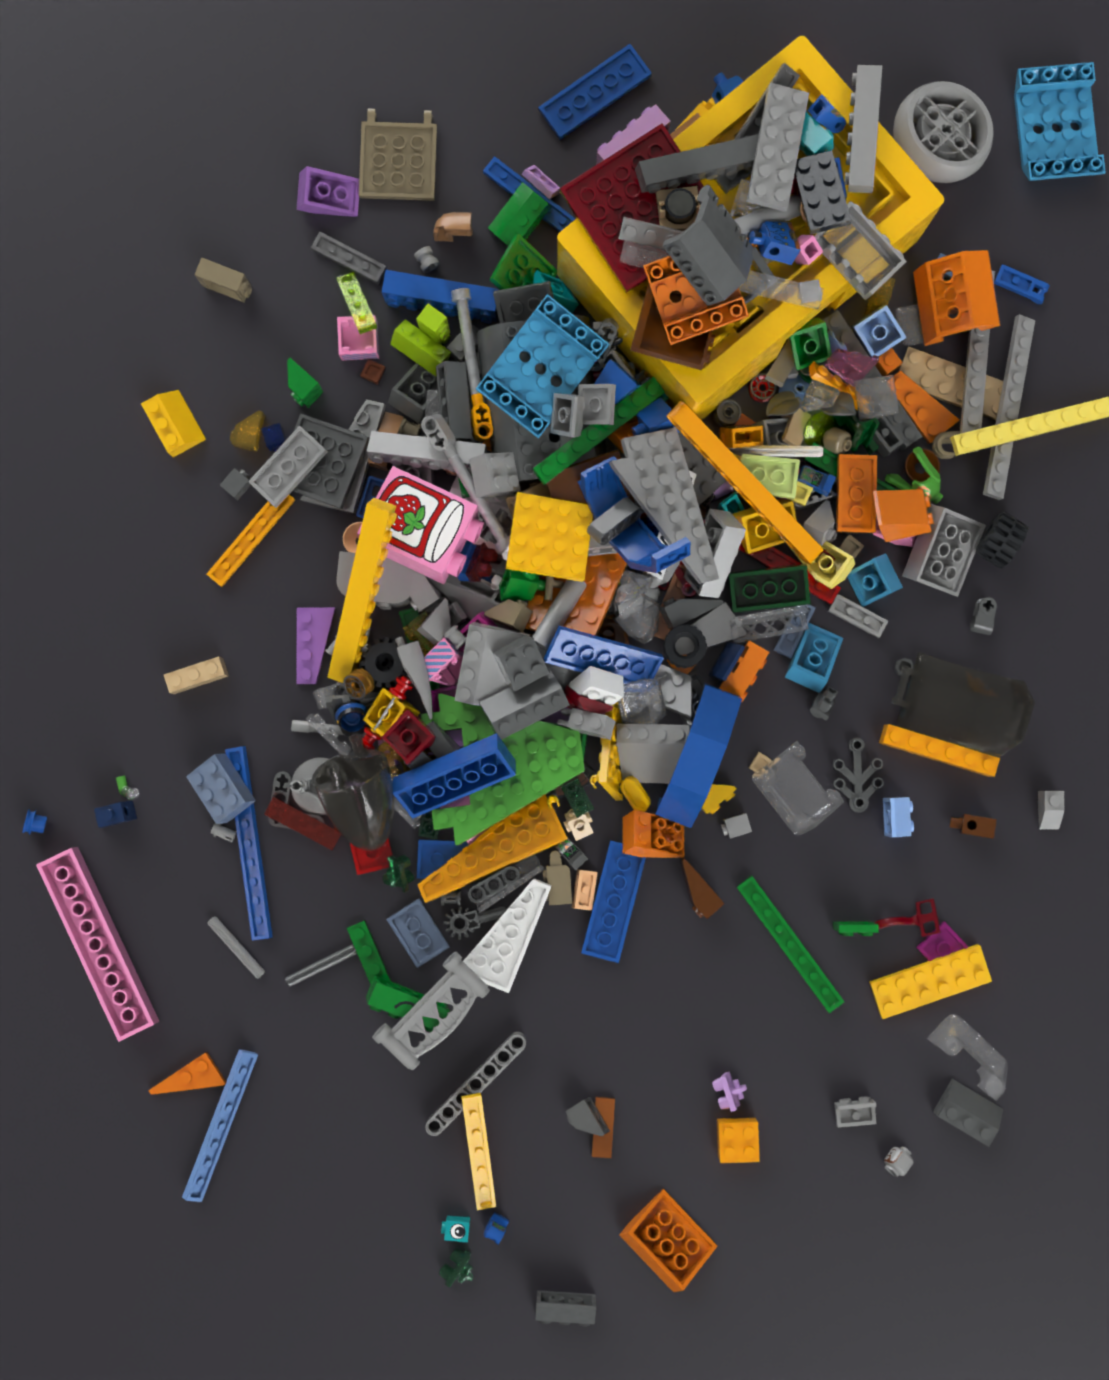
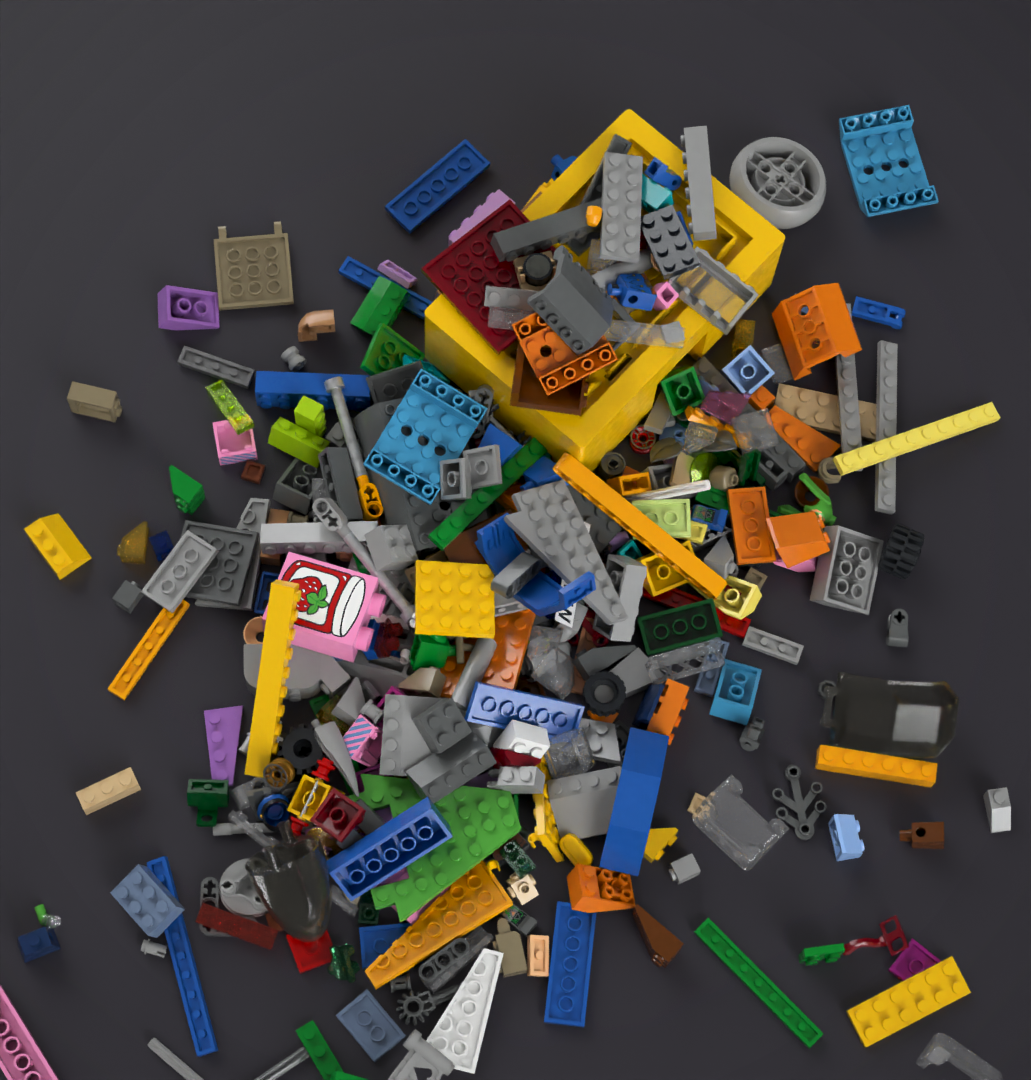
camera: 15 degrees left, 15 degrees down
(291, 694) = (207, 796): none -> dark green piece
(747, 153) = (593, 215): none -> light orange hose
(874, 580) = (783, 608): dark azure slope -> none

